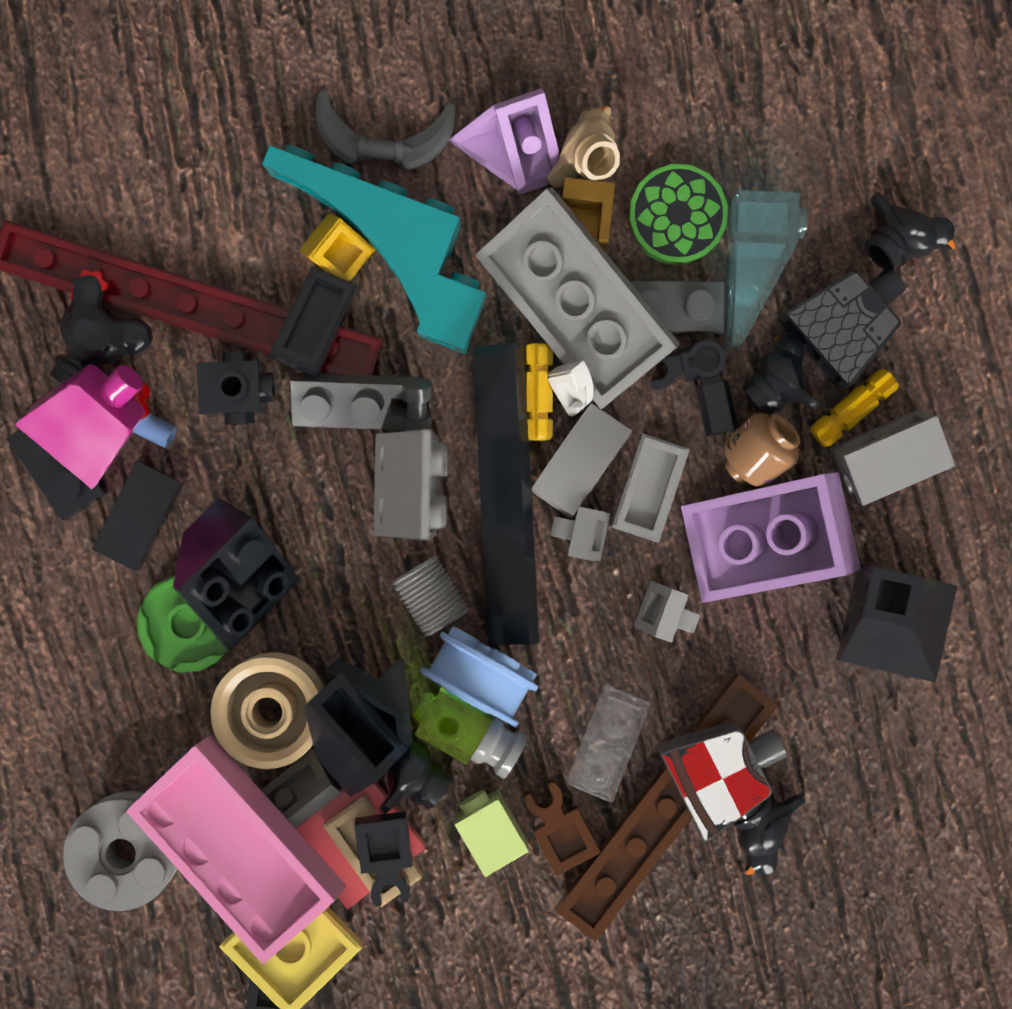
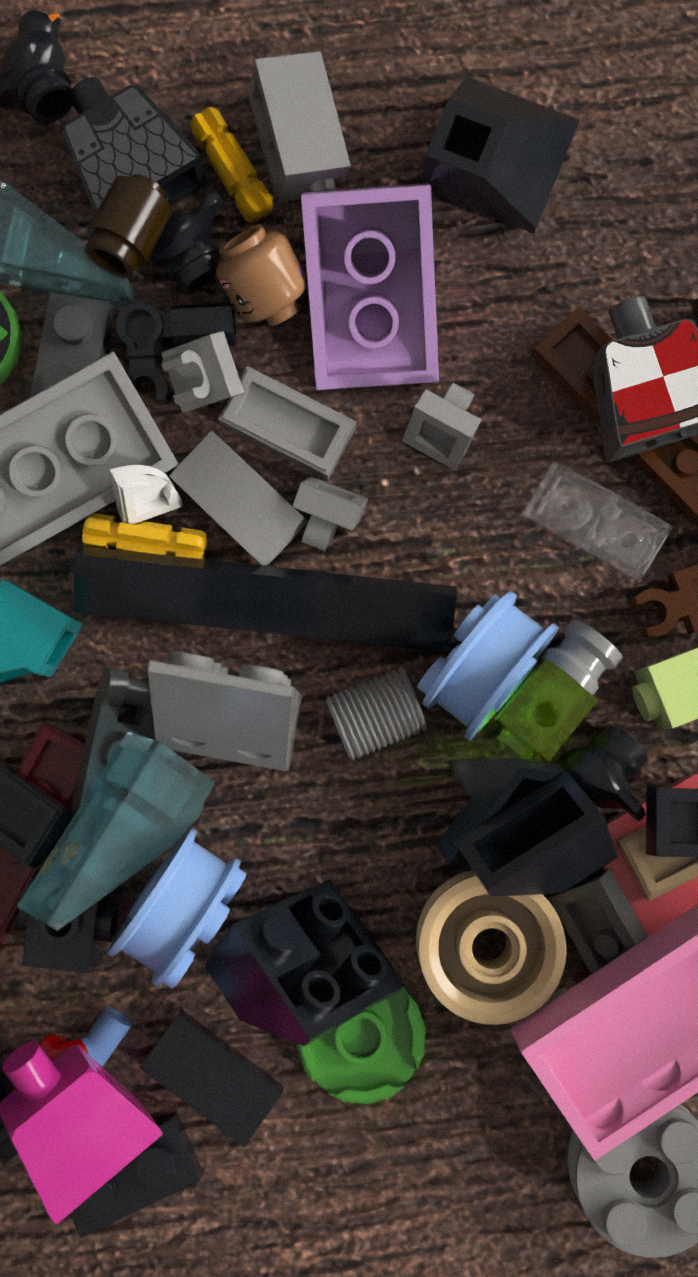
camera: 80 degrees left, 5 degrees down
(257, 472) = (178, 909): none -> light blue wheel
(309, 419) = (124, 823): none -> clear light blue slope
(676, 415) = (202, 372): none -> light grey tile
(779, 341) = (127, 225): none -> dark brown brick

